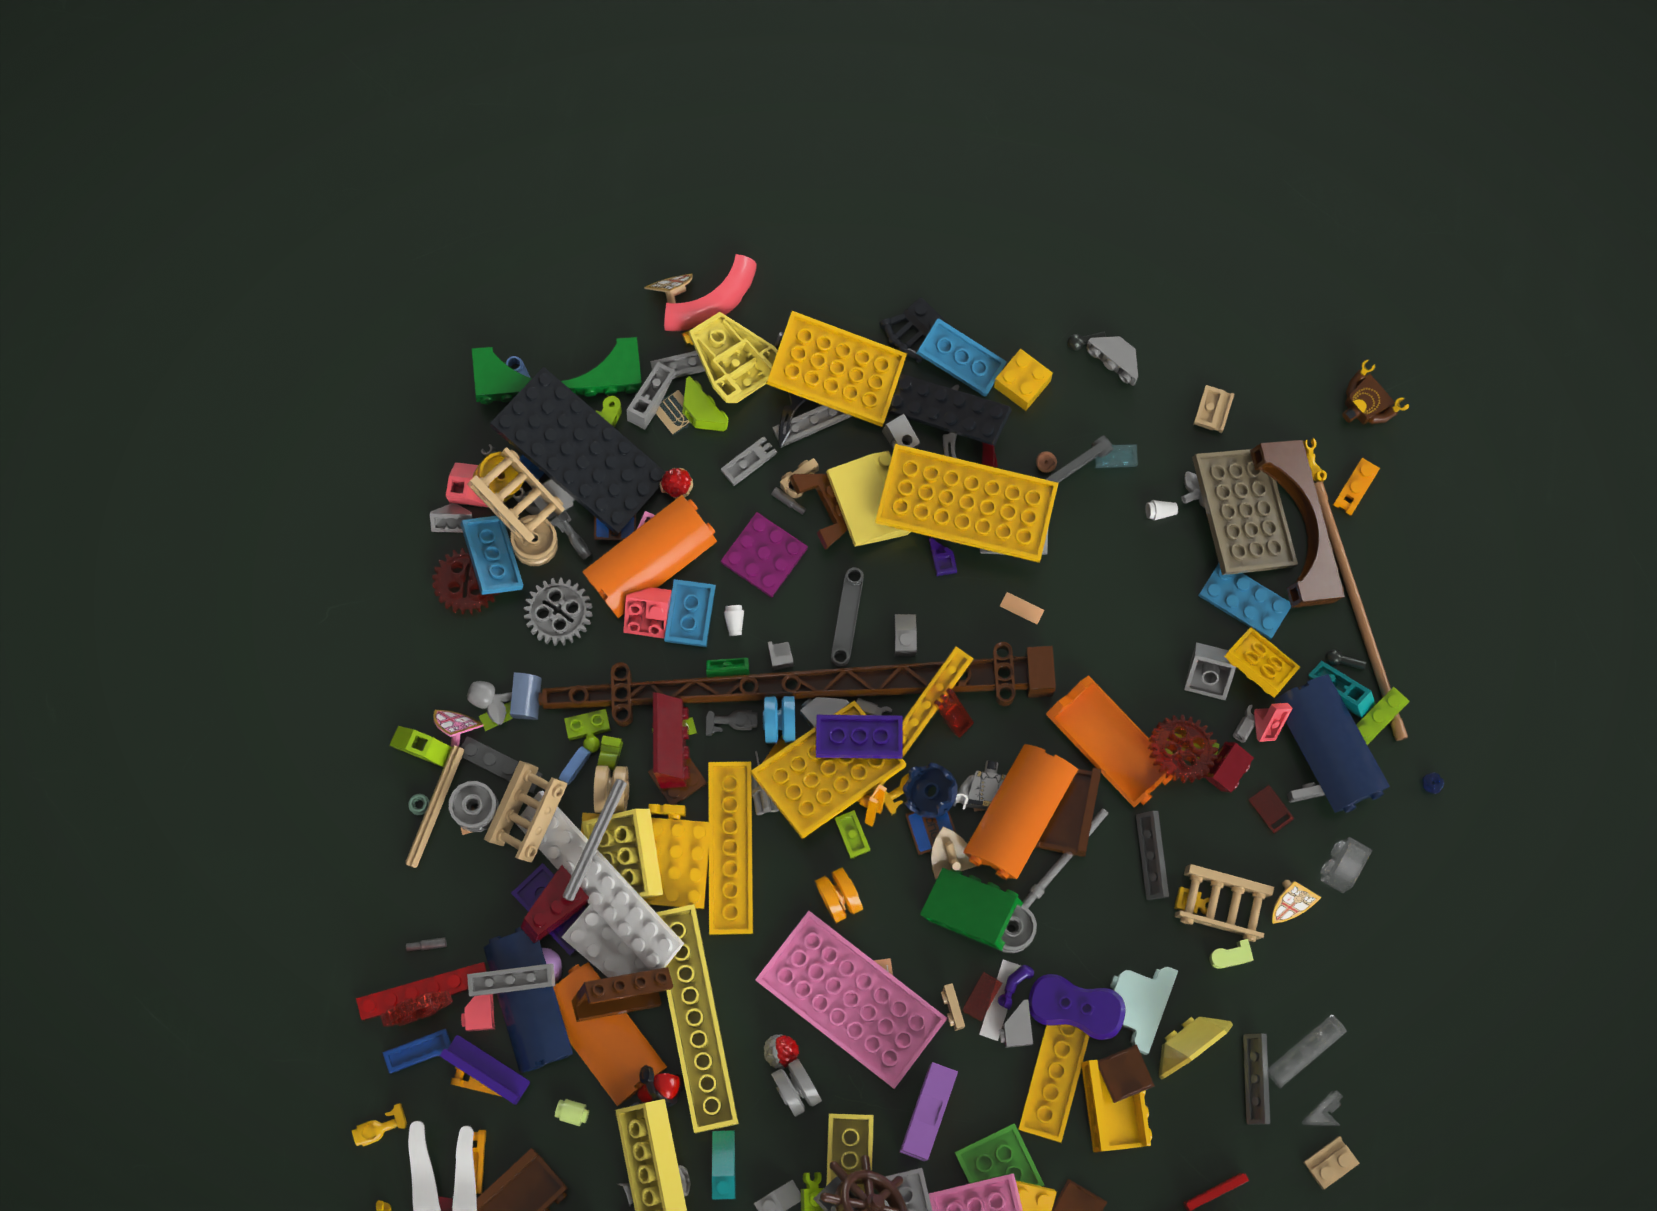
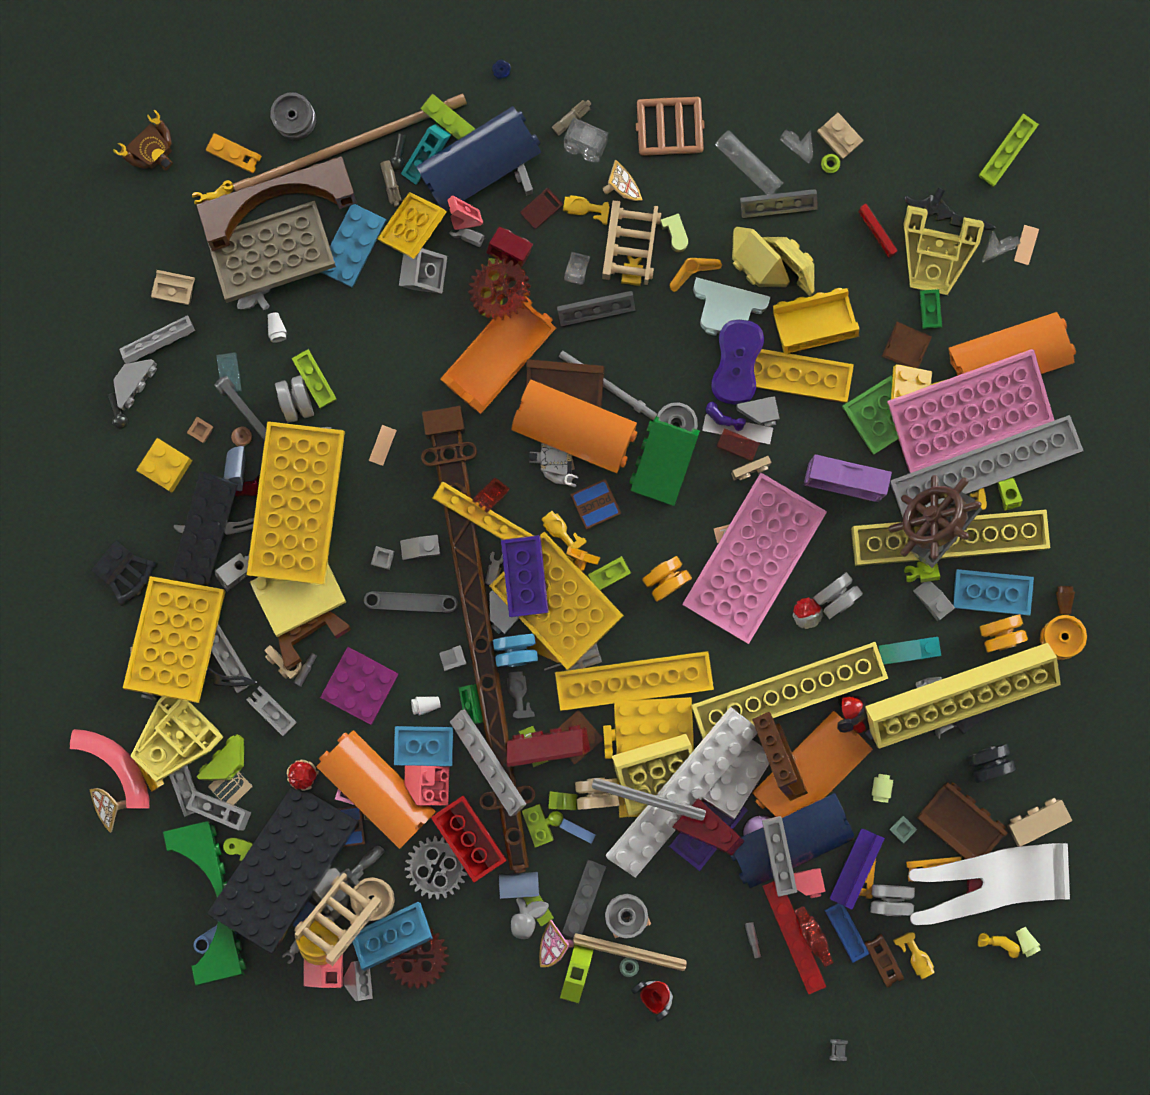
camera: 95 degrees left, 10 degrees up
(289, 1024) = (838, 1049): none -> dark grey bush
(379, 1089) = (884, 960): none -> reddish brown plate
(382, 828) = (656, 997): none -> red cap
(443, 1105) = (892, 900): none -> light grey wheel
(511, 804) = (620, 882): tan fence -> none
(522, 1130) = (903, 829): none -> sand green plate
(583, 647) = (468, 838): none -> red slope
(660, 675) = (487, 763): none -> light grey plate
(899, 594) = (382, 557): none -> light grey tile
(920, 782) = (562, 520): dark blue plate -> none
(943, 558) = (345, 521): dark purple tile -> none
(948, 852) = (616, 486): tan shield -> none
(961, 357) = (149, 524): dark azure plate -> none
(1012, 450) = (235, 466): none -> sand blue brick
(1057, 420) = (200, 430): none -> medium nougat plate
(1080, 517) = (294, 399): none -> light grey wheel
(1101, 543) = (314, 379): none -> lime plate
(1125, 1073) = (790, 315): reddish brown piece -> none
(1161, 393) = (156, 340): none -> light grey plate
(1190, 1085) = (799, 262): none -> light yellow wedge
(1191, 969) = (690, 267): none -> light orange piece
(1199, 839) = (577, 268): none -> clear slope
(1270, 853) = (581, 206): none -> yellow piece
(1305, 1143) = (830, 157): none -> lime plate
(1311, 648) = (391, 184): none -> dark tan piece
(1376, 859) = (576, 112): none -> dark tan piece
(1382, 956) = (660, 103): none -> nougat bar
(1393, 551) = (301, 124): none -> flat silver wheel

